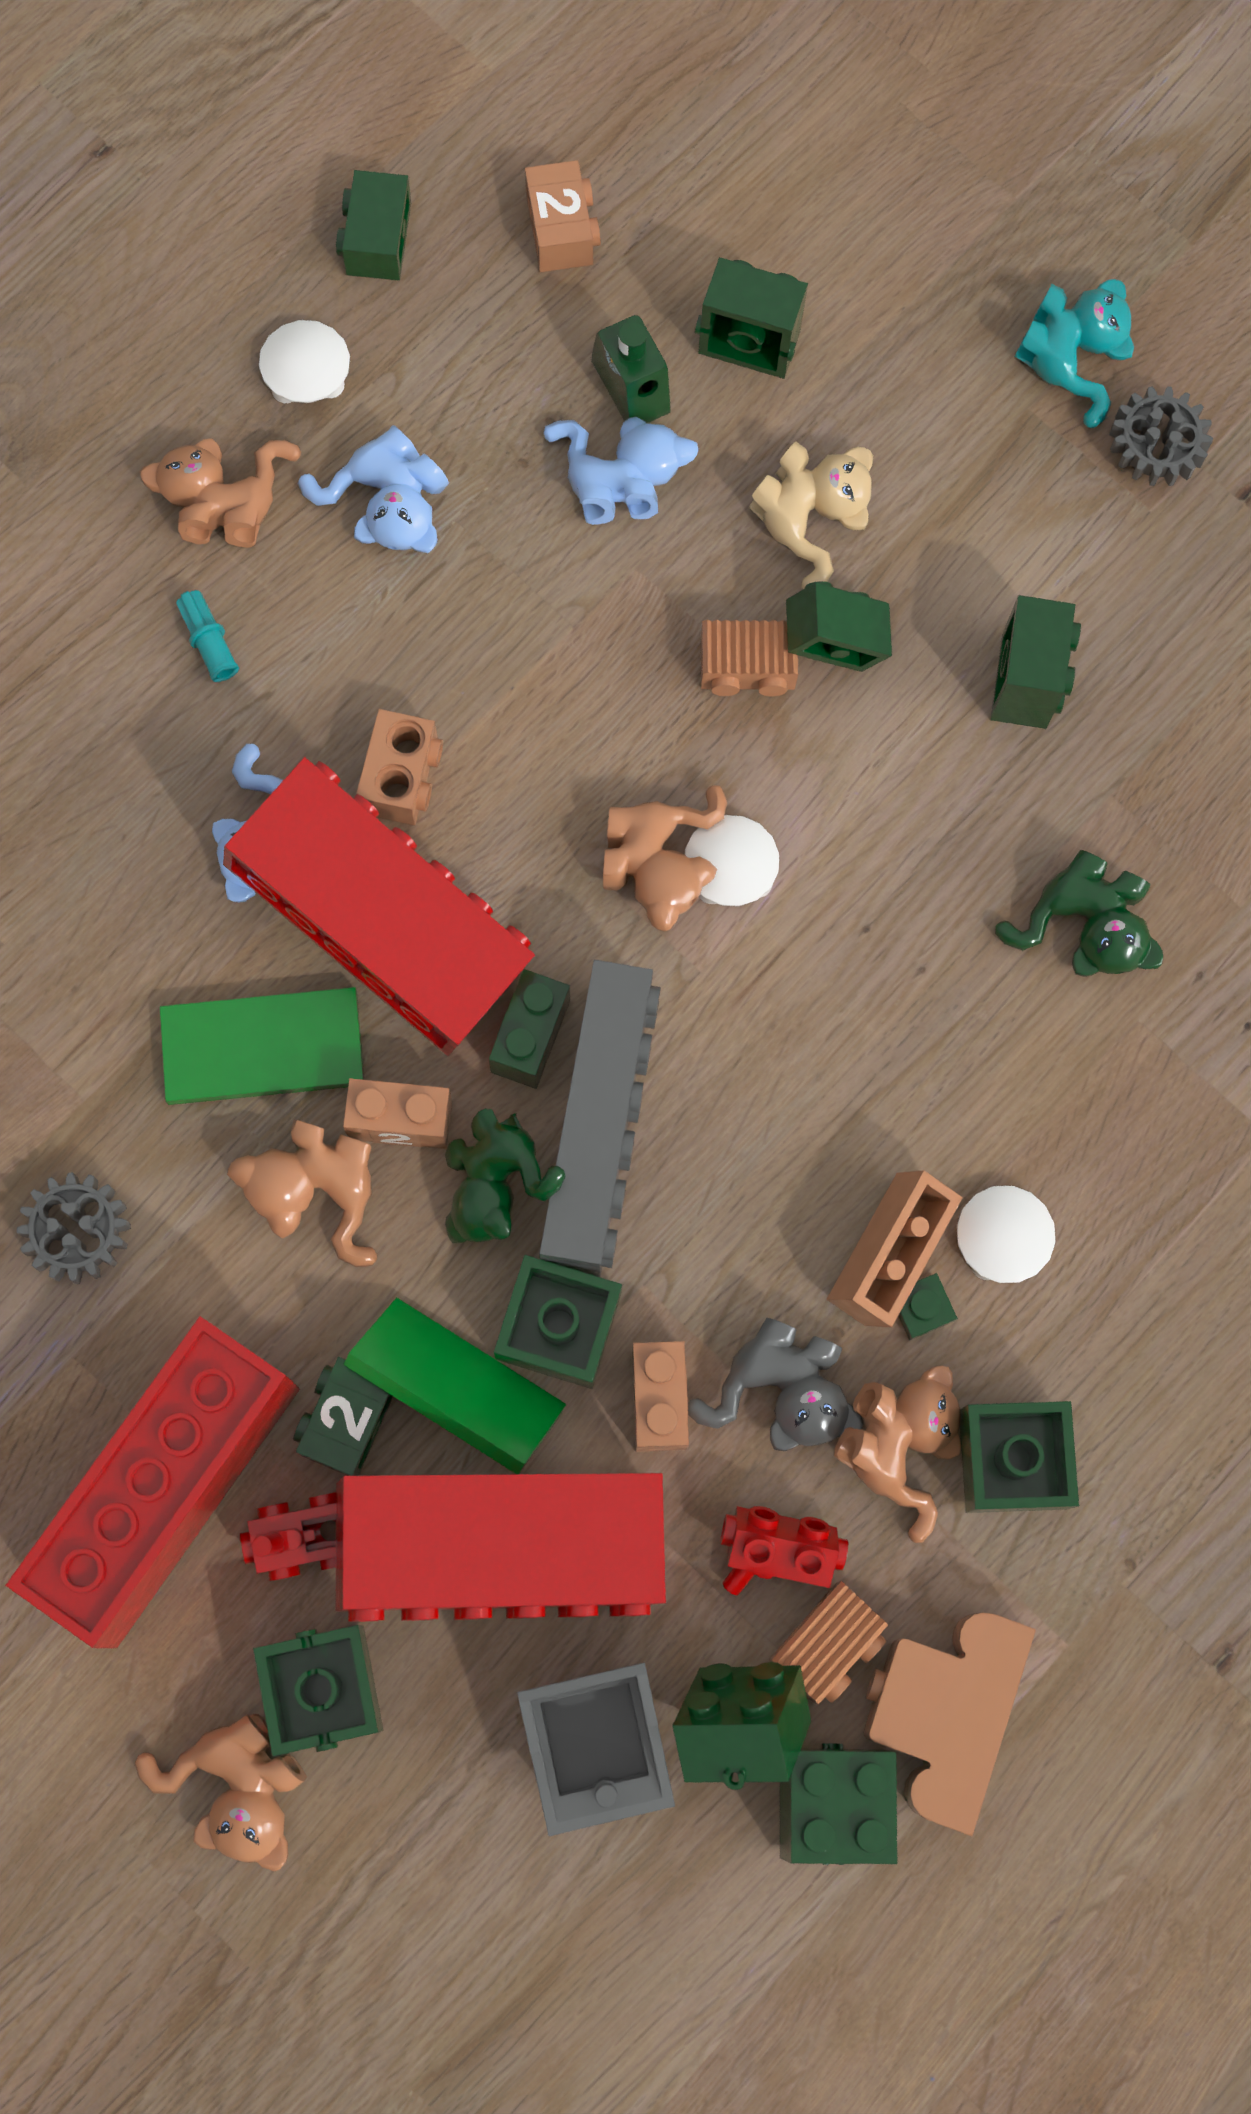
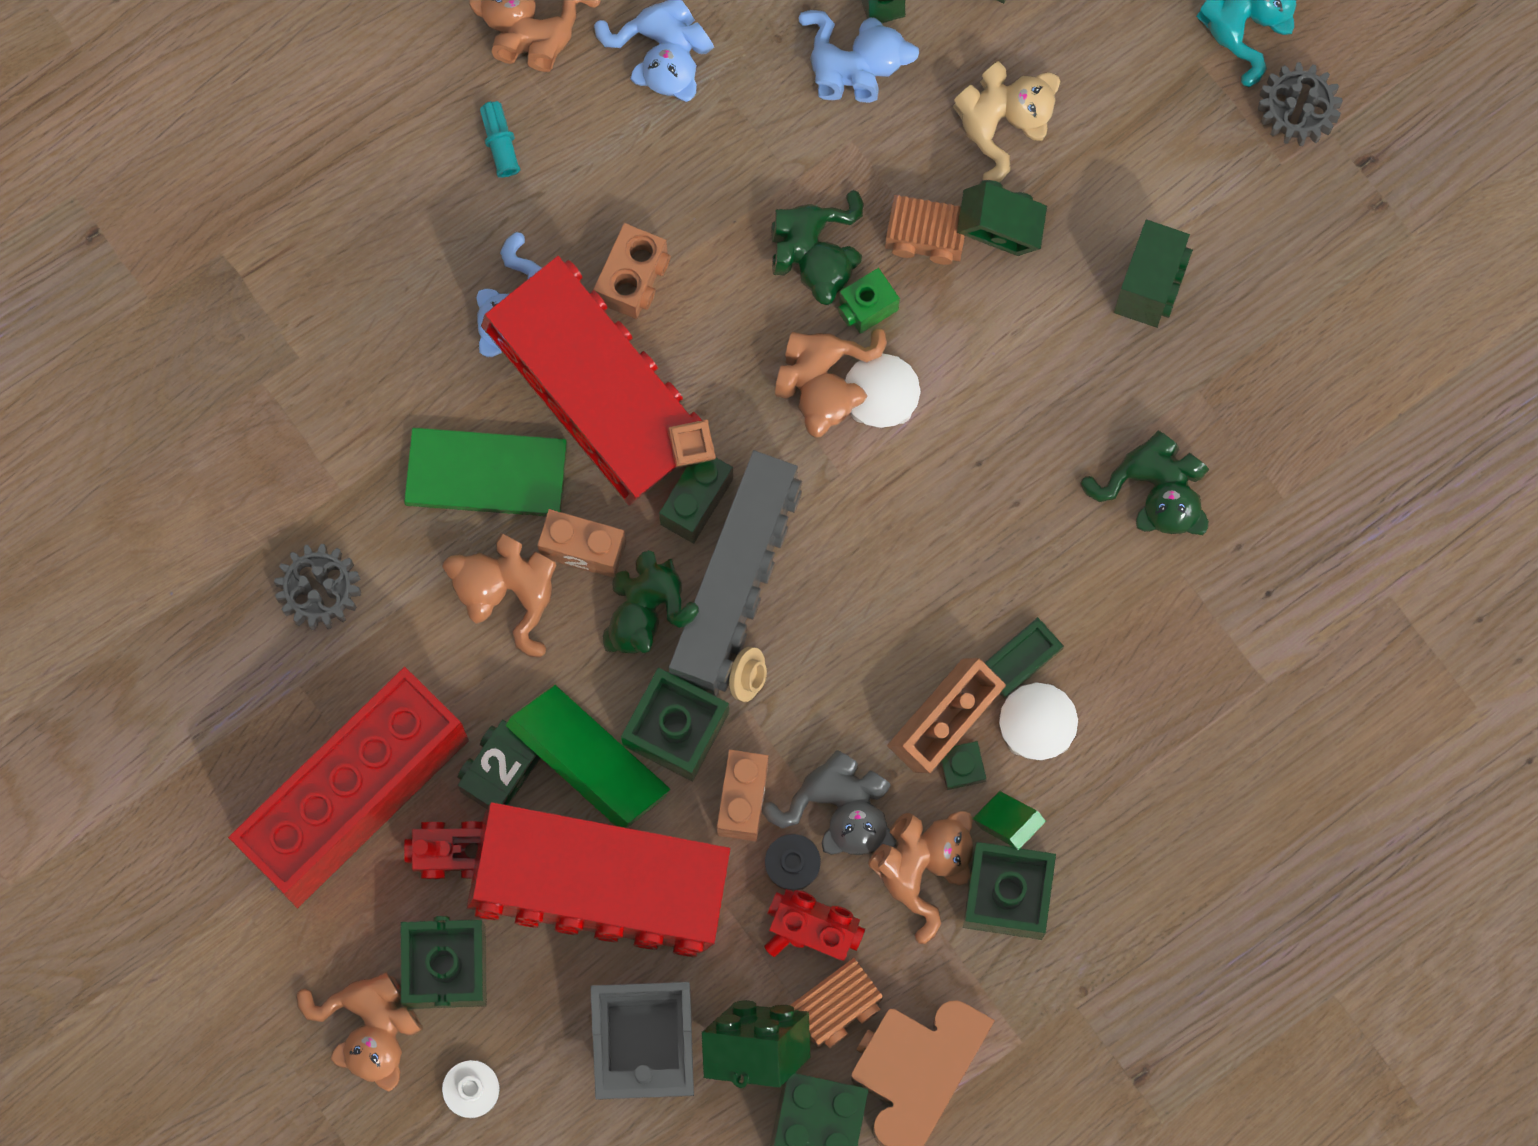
camera: 15 degrees right, 0 degrees up
(382, 1845) = (471, 1089): none -> white piece
(515, 964) = (691, 443): none -> nougat tile
(630, 720) = (822, 265): none -> dark green animal
(637, 1241) = (747, 674): none -> tan piece
(694, 754) = (868, 301): none -> green brick
(737, 1469) = (792, 862): none -> black piece
(972, 1153) = (1024, 655): none -> dark green tile
(1000, 1367) = (1009, 820): none -> green tile

